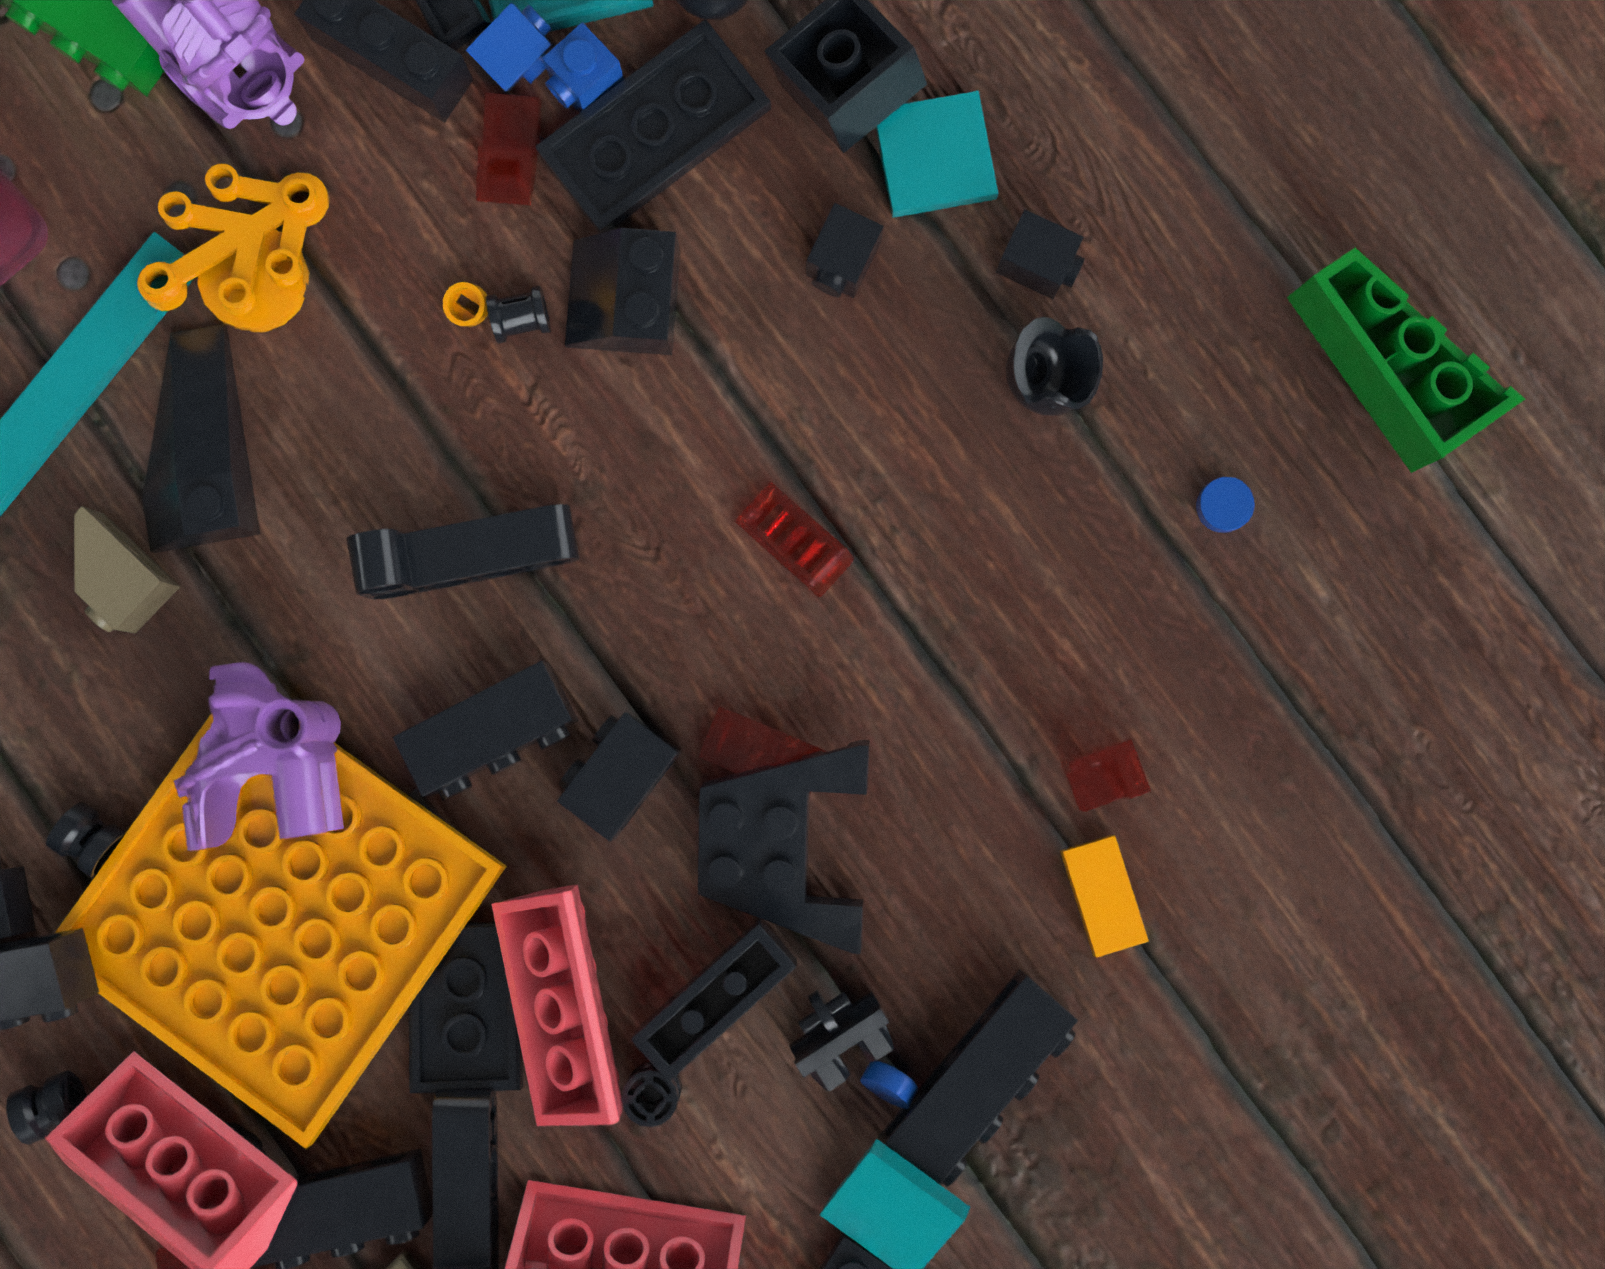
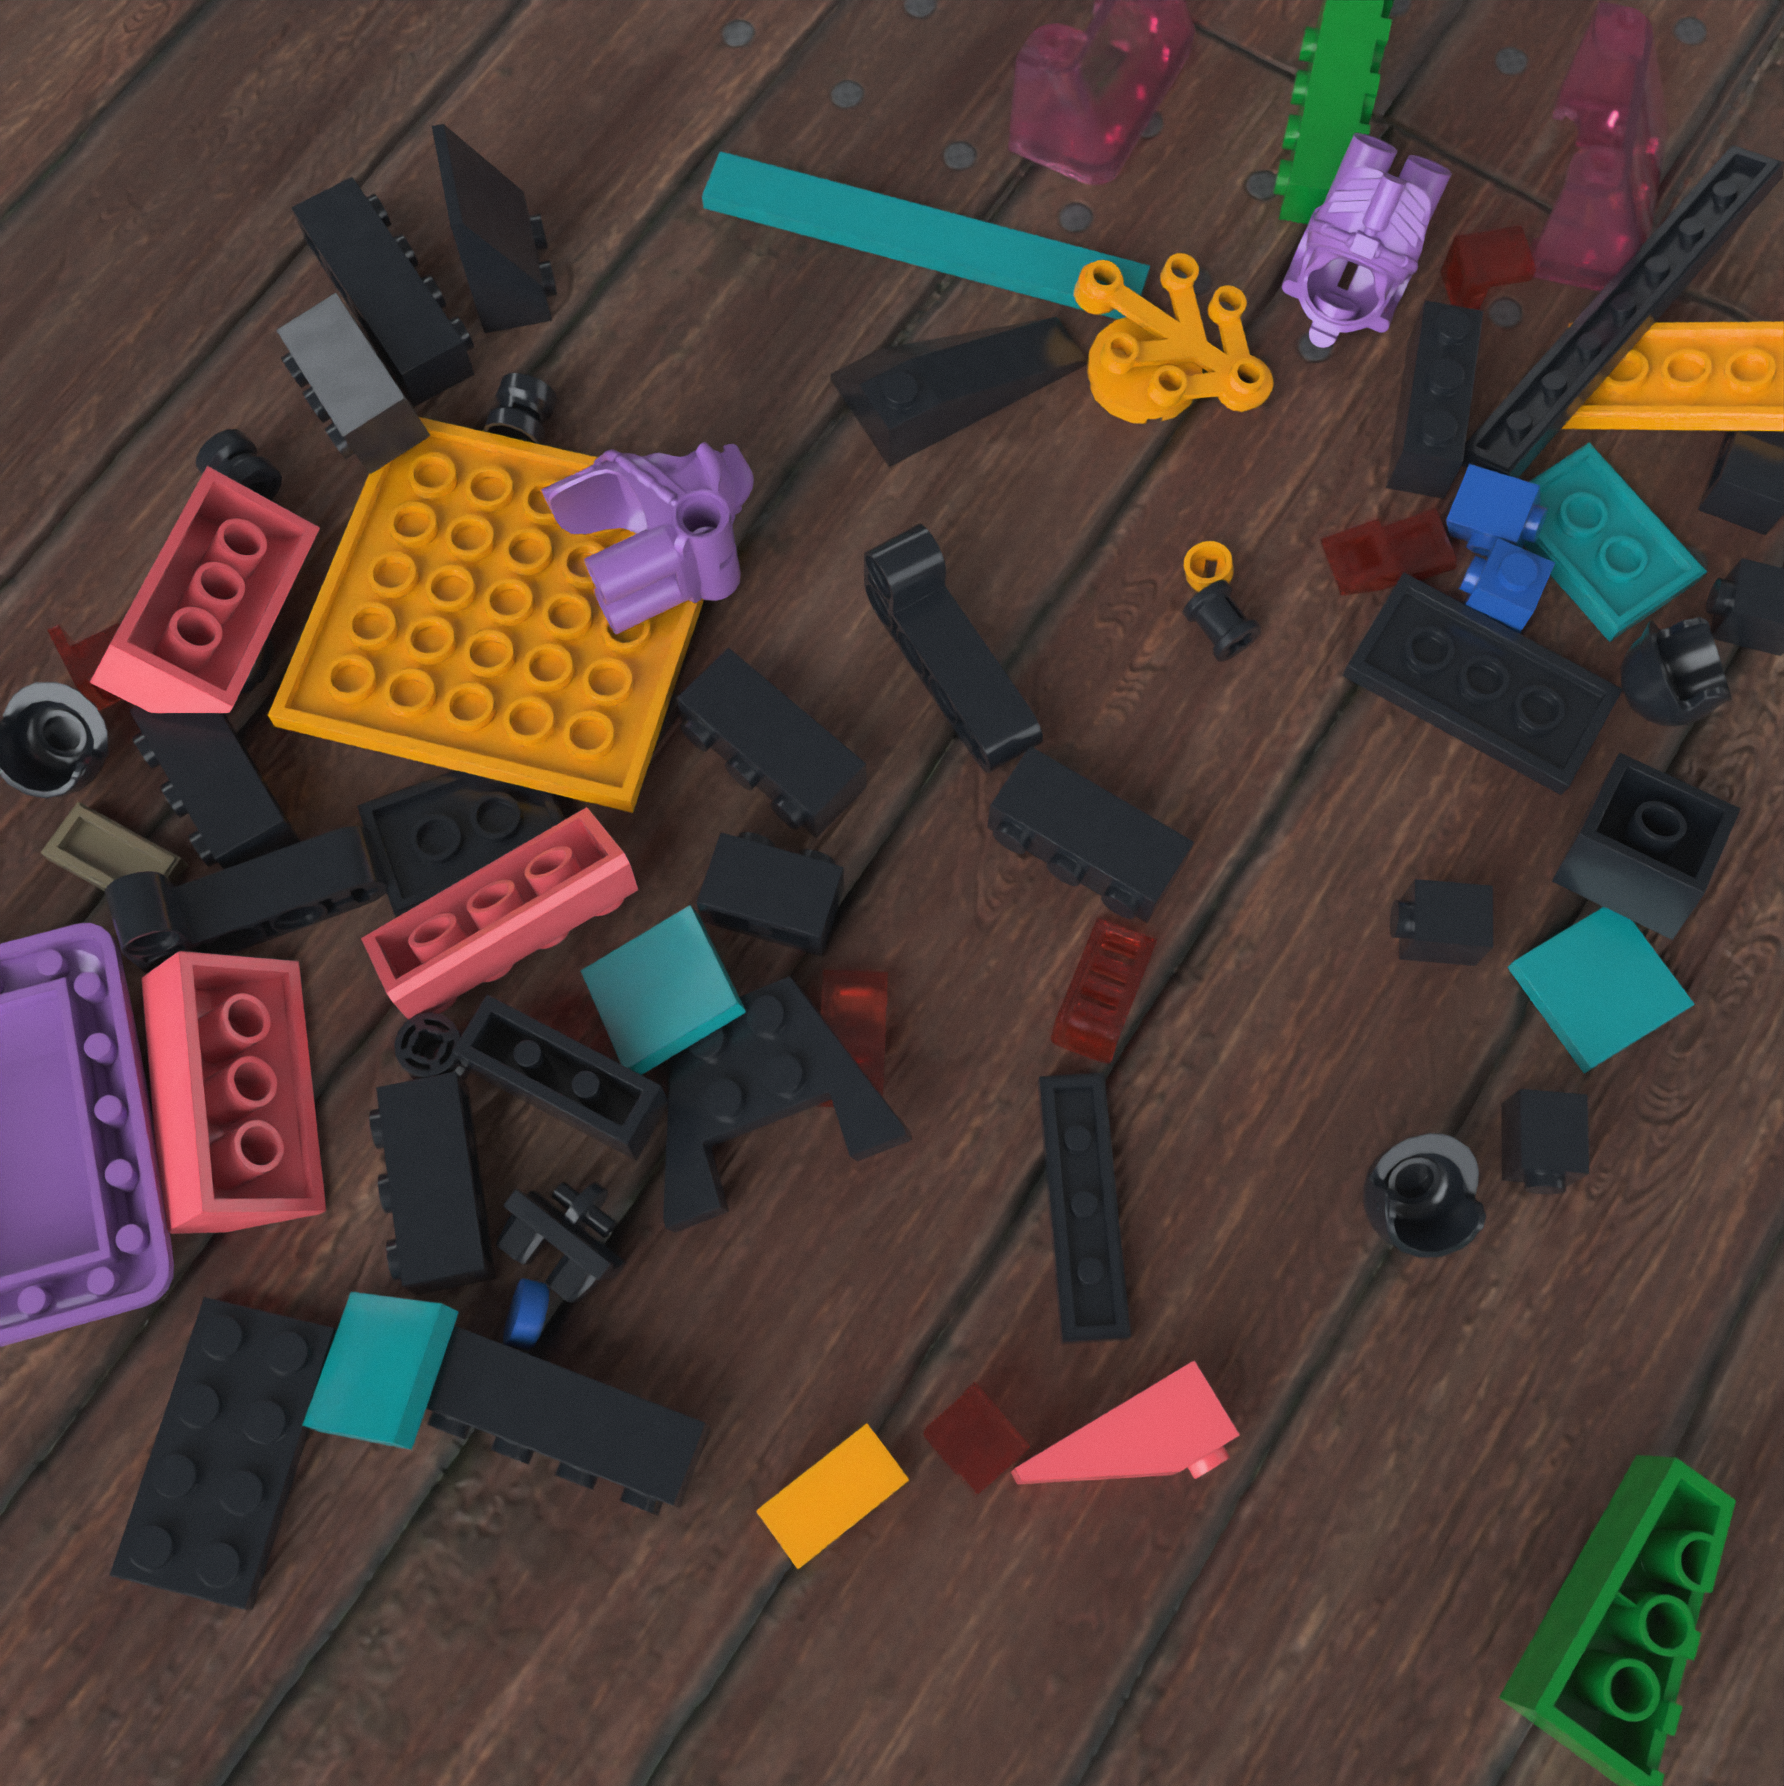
camera: 70 degrees right, 15 degrees down
(116, 575) = (795, 348): dark tan slope -> none
(624, 291) = (1295, 718): black slope -> none
(667, 502) = (1087, 835): none -> black brick
(671, 893) = (662, 991): none -> teal tile
(760, 1126) = (432, 1184): none -> black brick
(959, 625) = (1083, 1209): none -> black tile
(1147, 648) = (1150, 1435): none -> coral slope
(1225, 504) = (1356, 1472): blue tile -> none

